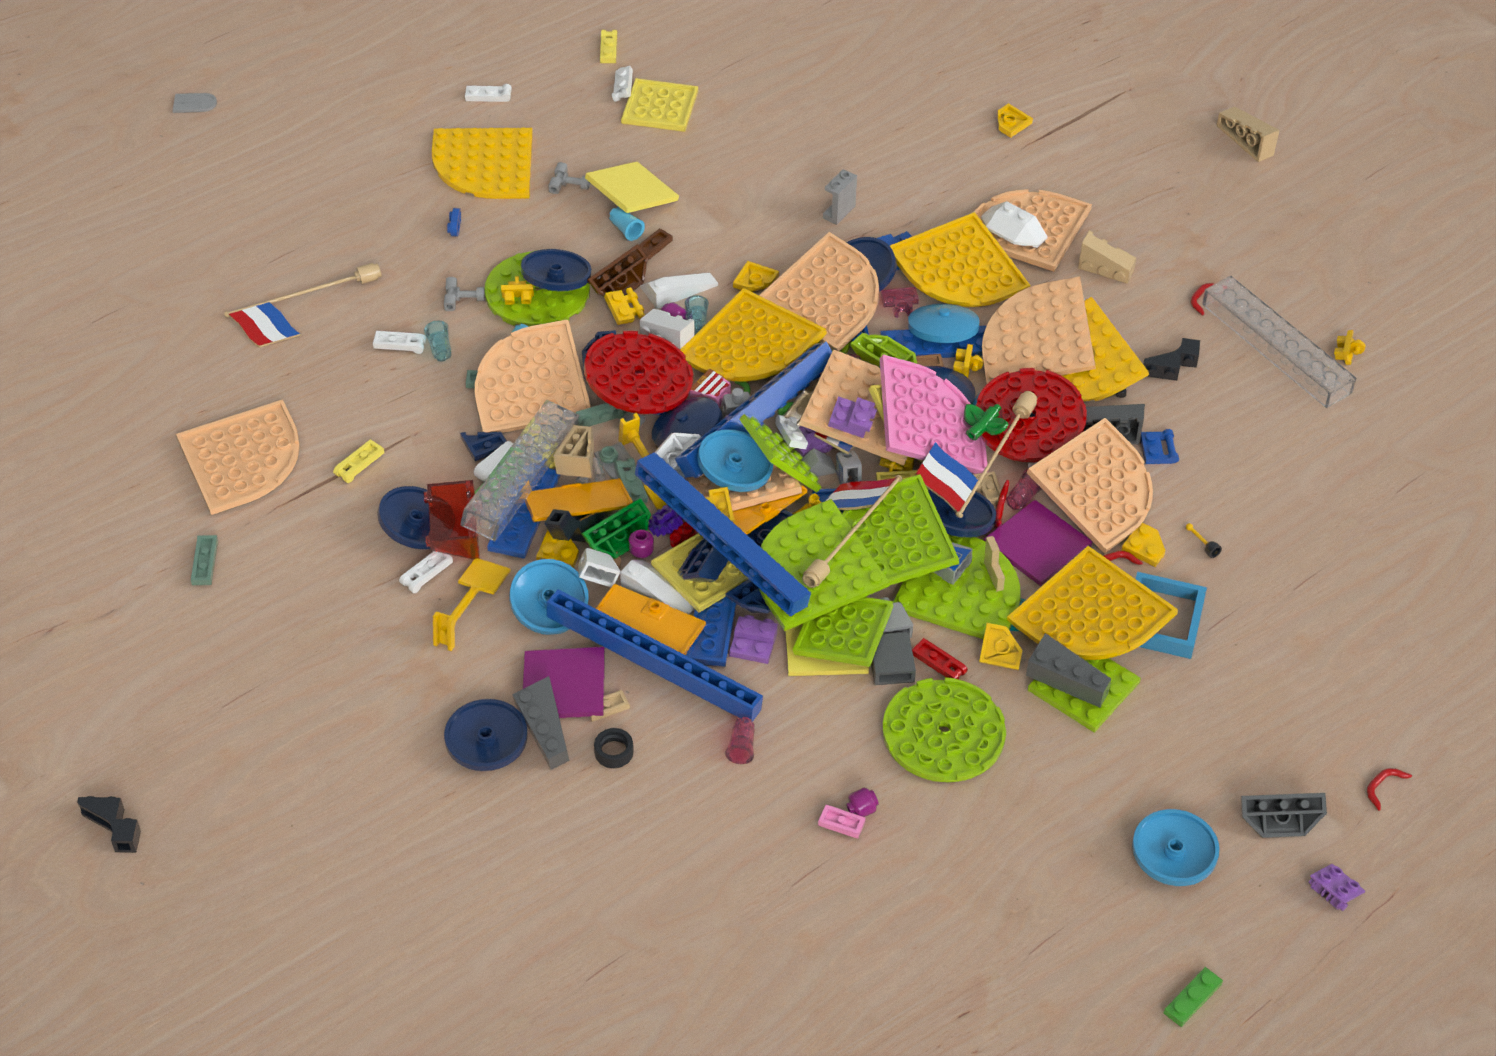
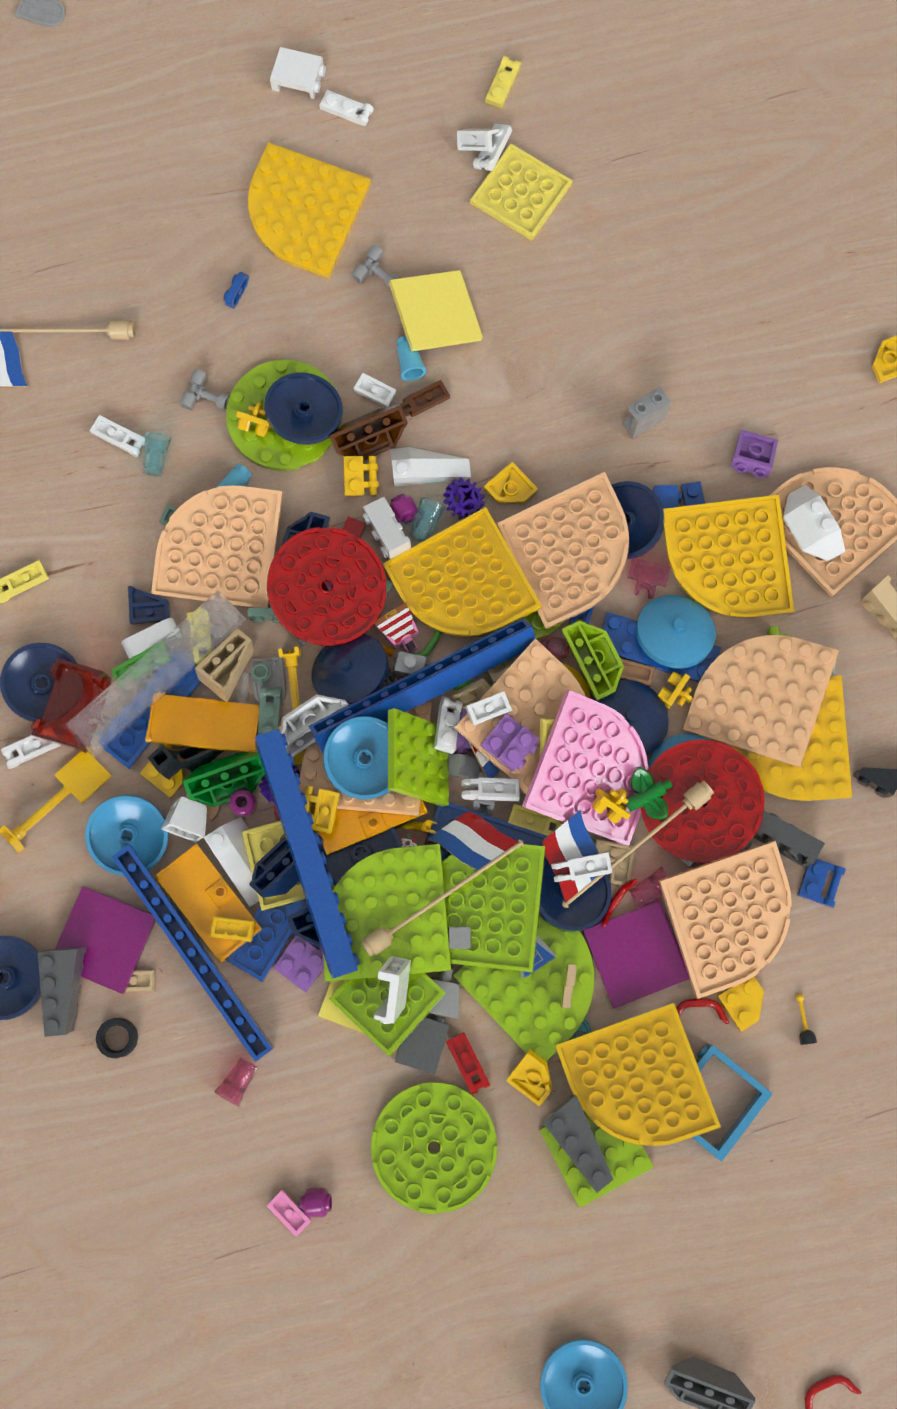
camera: 25 degrees right, 30 degrees up
(437, 79) = (297, 71): none -> white panel
(606, 251) = (374, 390): none -> white plate
(607, 79) = (475, 139): none -> white panel
(680, 625) = (232, 929): none -> yellow plate
(719, 292) = (455, 495): none -> dark purple gear
(822, 396) = (488, 708): none -> white plate
(845, 581) = (396, 971): none -> white panel
(853, 453) = (491, 789): none -> white hinge
(884, 558) = (460, 938): none -> light grey tile
(940, 202) = (754, 454): none -> medium lavender plate
(960, 431) = (614, 802): none -> yellow hips
(960, 478) = (584, 867): none -> white hinge

